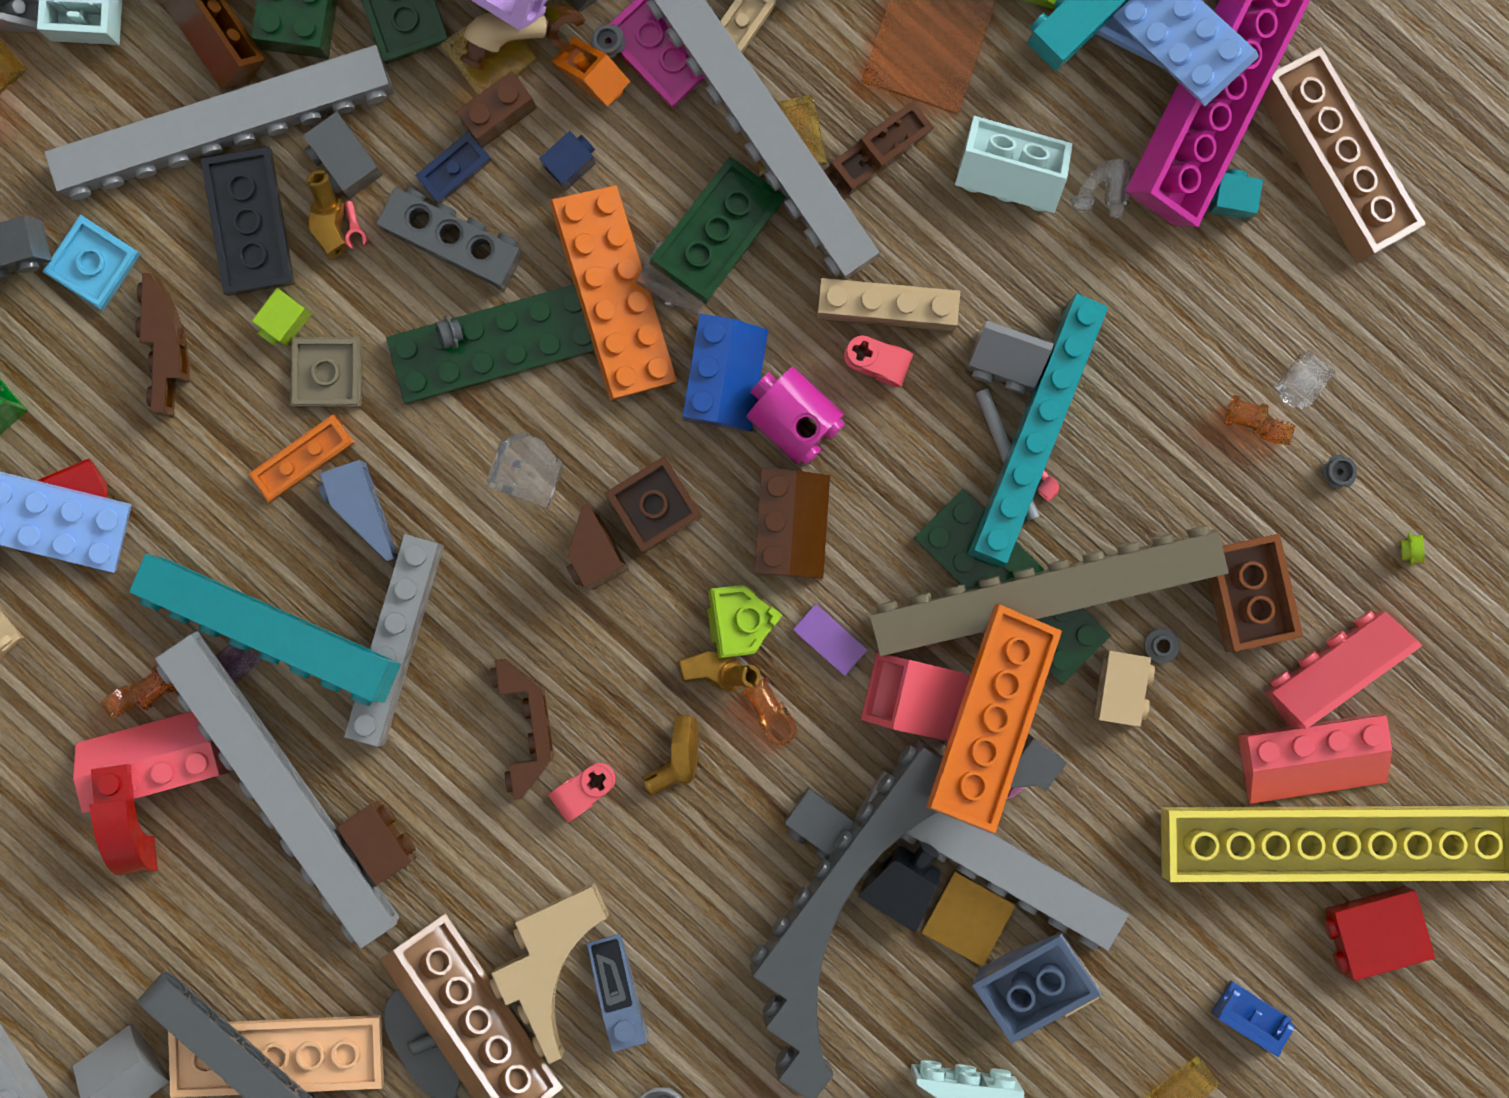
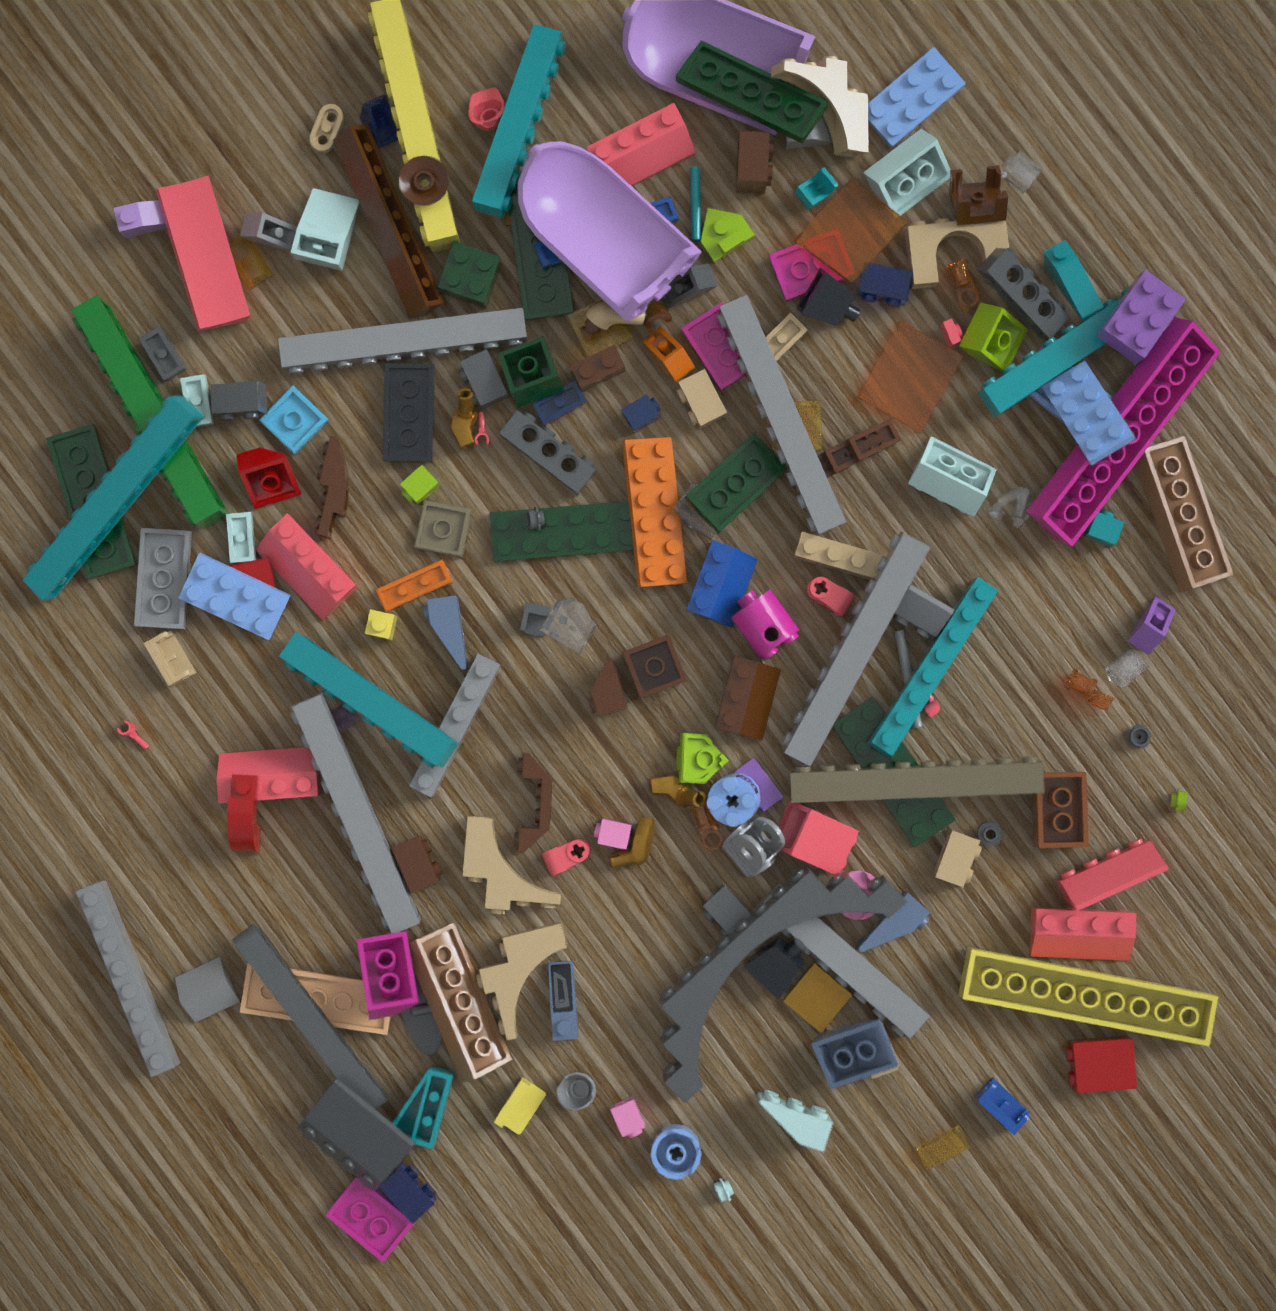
camera: 15 degrees right, 0 degrees up
(47, 437) = (241, 537): none -> light aqua plate
(66, 347) = (267, 476): none -> red slope
(142, 693) = (274, 727): clear orange connector -> none
(146, 460) = (306, 566): none -> coral slope
(264, 521) = (381, 624): none -> light yellow brick
(362, 1007) = (387, 974): none -> dark pink slope
(403, 131) = (530, 371): none -> dark green brick
(474, 471) = (534, 618): none -> dark grey panel
(503, 846) = (504, 884): none -> tan arch
(608, 31) = (690, 331): dark grey plate -> none
(641, 747) = (612, 833): none -> bright pink brick
(648, 125) = (701, 399): none -> tan brick
(780, 667) = (720, 799): none -> light blue brick
(837, 729) = (752, 848): none -> light grey piece
(926, 424) = (855, 648): none -> light grey brick
(994, 719) = (862, 861): orange plate -> none
(1067, 791) = (904, 921): none -> sand blue slope
(1328, 316) = (1152, 626): none -> medium lavender slope

